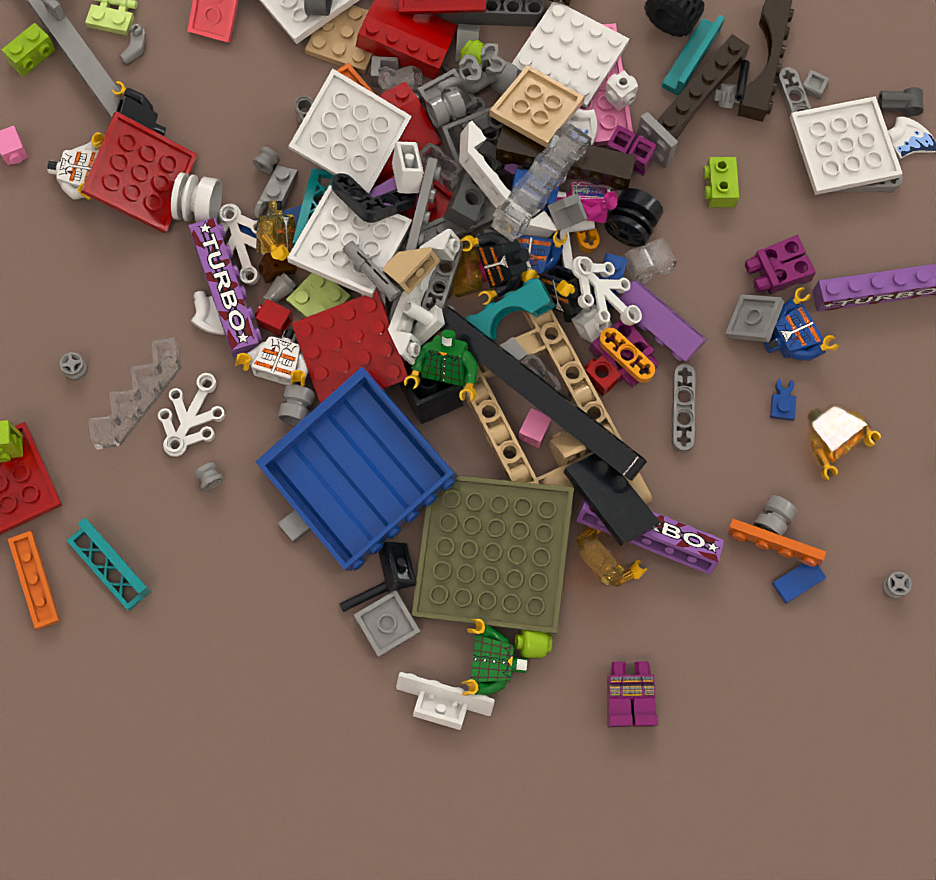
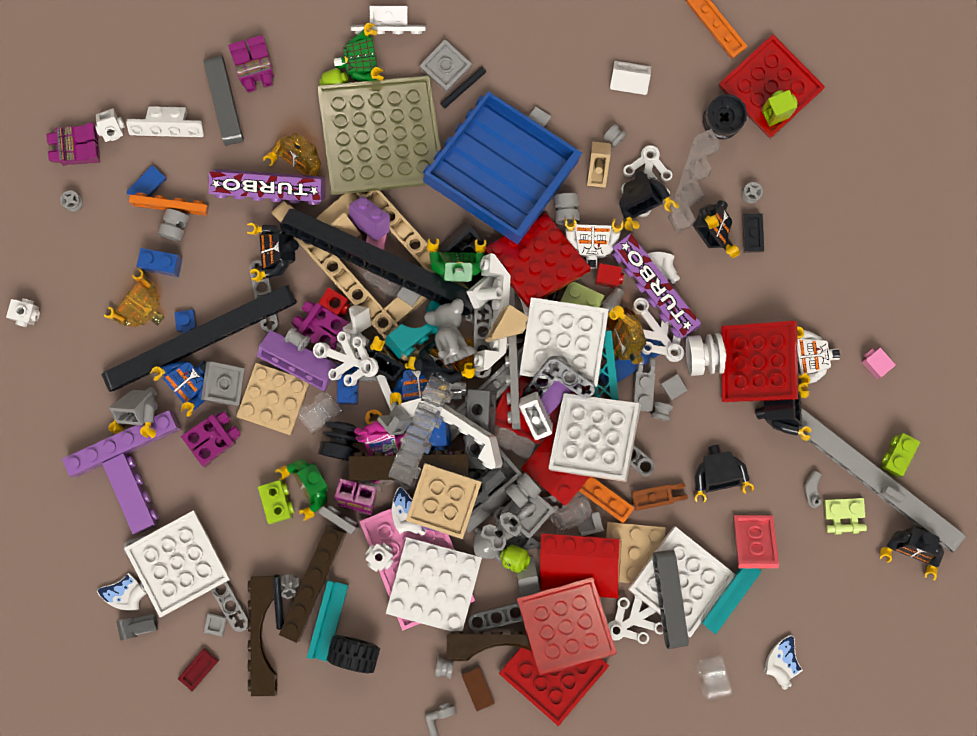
camera: 170 degrees right, 10 degrees up
(63, 445) = (732, 109): none -> black wheel
(90, 321) = (753, 233): none -> black plate
(111, 556) = (664, 55): teal fence -> none
(131, 333) = (714, 227): none -> black torso
(163, 545) = (630, 77): none -> white panel
(201, 387) = (642, 196): none -> black torso
(227, 82) = (720, 472): none -> black torso
(239, 448) = (599, 164): none -> tan slope
(243, 184) = (674, 387): none -> light grey tile
(298, 79) = (656, 496): none -> dark orange hinge
(364, 264) = (557, 325): light grey pin -> none
(396, 566) = (450, 108): black slope -> none
(478, 271) = (449, 339): none -> light grey animal
(535, 451) = (369, 218): none -> medium lavender brick
(580, 337) = (359, 319): none -> white panel
(611, 499) = (299, 192): black tile -> none
(627, 345) = (307, 306): light orange beam -> none
(656, 337) = (297, 339): none -> light grey bush
(659, 447) = (276, 251): none -> black torso
(679, 660) = (223, 100): none -> dark grey beam
(680, 190) = (310, 483): none -> green torso
(700, 291) = (273, 399): none -> tan plate
(757, 653) = (165, 122): none -> white bracket
(770, 376) = (199, 338): none -> black beam
(801, 477) = (159, 262): none -> blue brick
(832, 664) = (109, 125): none -> white brick
(842, 47) = (198, 669): none -> dark red tile
(861, 313) = (135, 409): none -> light grey torso
(881, 654) = (74, 145): none -> magenta hips
(883, 230) = (130, 493): none -> medium lavender brick

